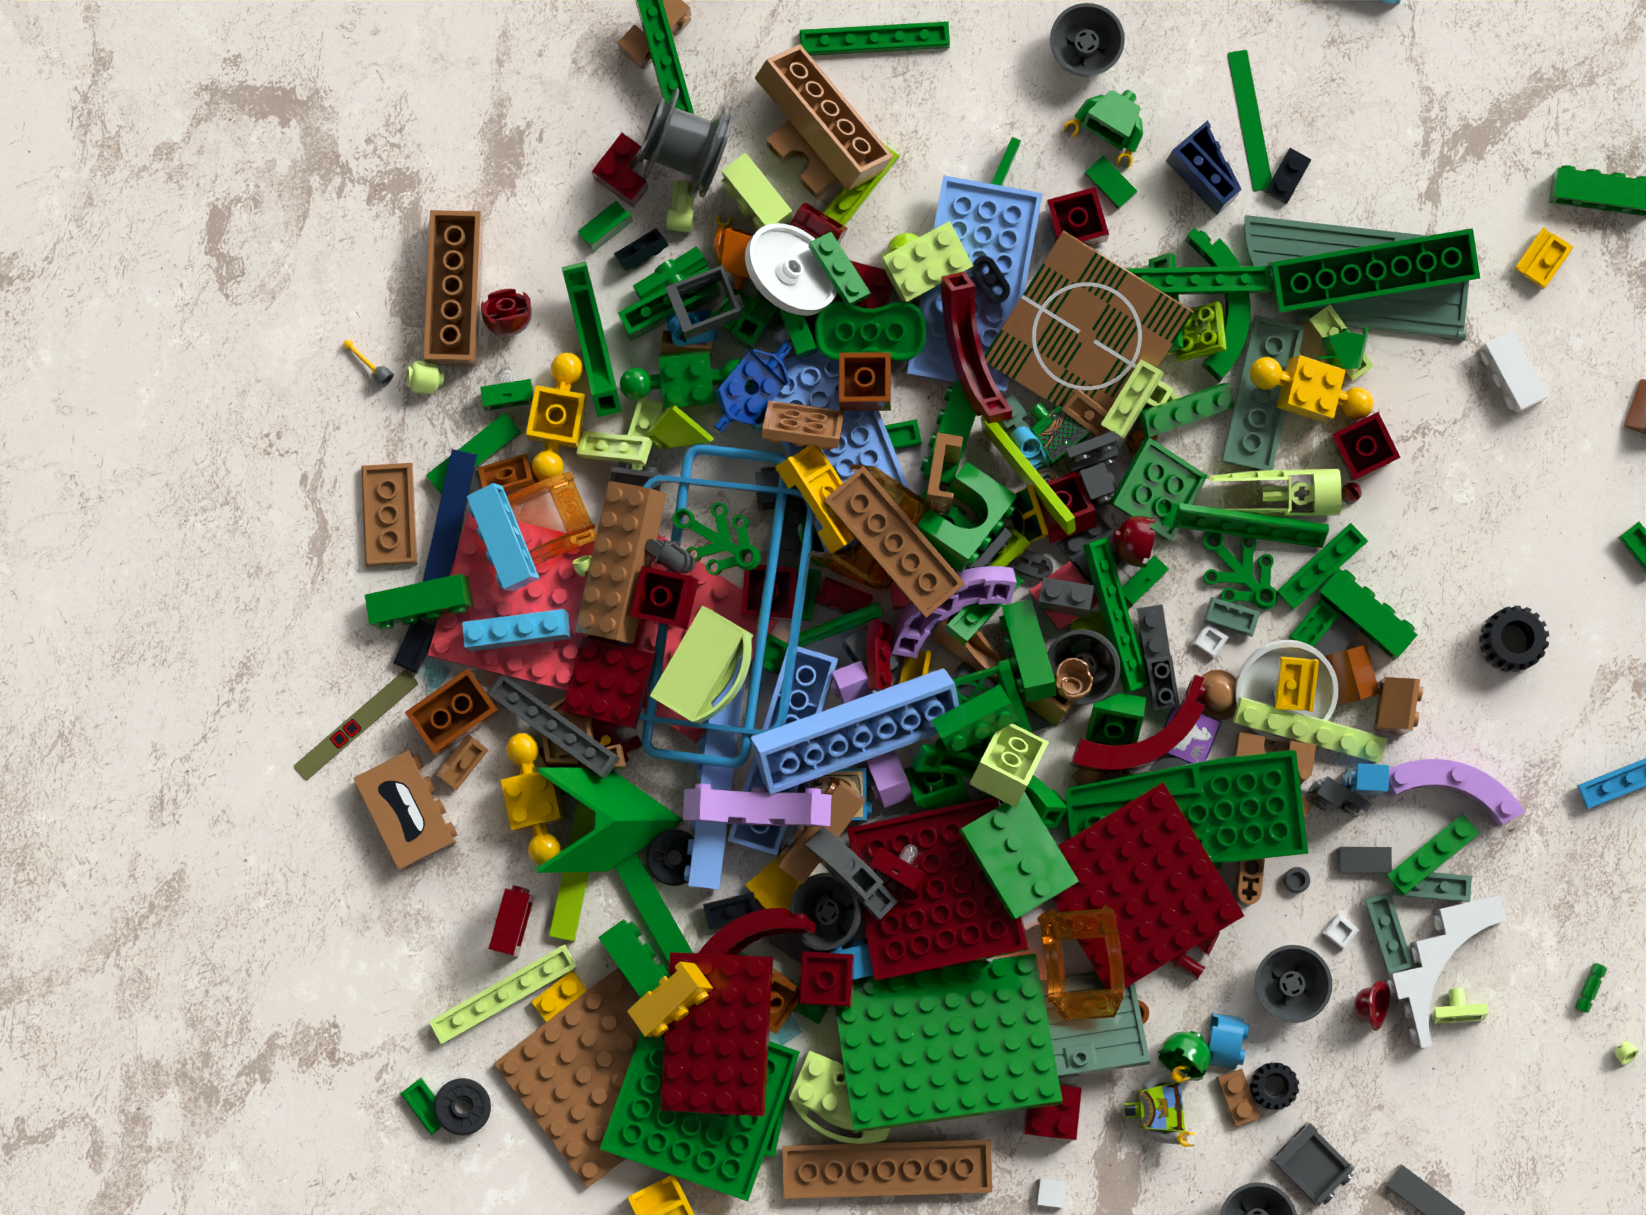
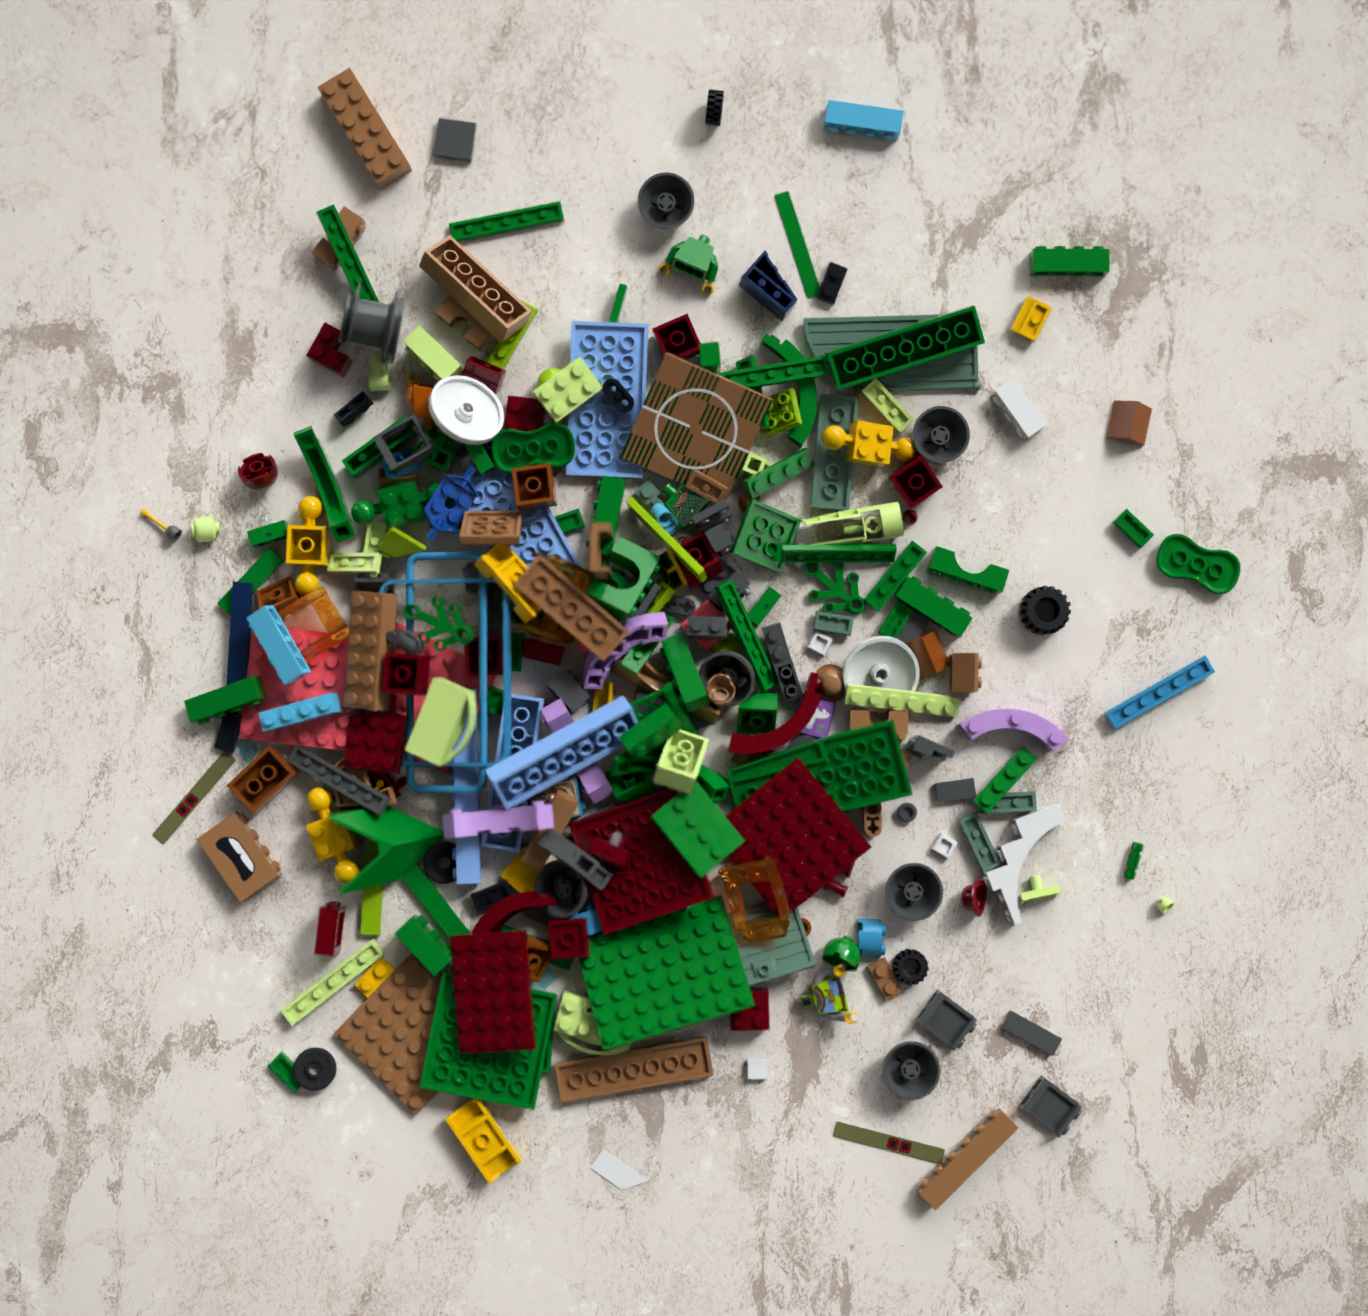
camera: 10 degrees left, 5 degrees up
(389, 514) = (194, 636): medium nougat tile -> none
(453, 287) = (215, 458): medium nougat brick -> none
(462, 762) = (276, 814): medium nougat plate -> none
(582, 564) = (342, 655): yellowish green hinge -> none
(605, 226) = (324, 394): green panel -> none
(670, 999) = (454, 973): yellow wedge -> none
(671, 272) = (378, 423): green piece -> none
(839, 269) = (503, 404): plate -> none
(839, 624) = (540, 673): green axle -> none
(879, 655) = (573, 692): dark red hinge -> none
(966, 350) = (607, 452): dark red arch -> none
(1111, 182) = (699, 307): green tile -> none
(1118, 244) = (710, 356): none -> green arch
(1132, 398) = (736, 471): yellowish green plate -> none
(1134, 540) = (752, 578): dark red cylinder -> none
(1296, 684) = (887, 668): yellow plate -> none
(1345, 349) = (891, 410): green piece -> none
(1367, 779) = (948, 733): dark azure brick -> none
(1389, 559) = (944, 563): none -> green arch
(1418, 384) = (950, 429): none -> dark grey piece

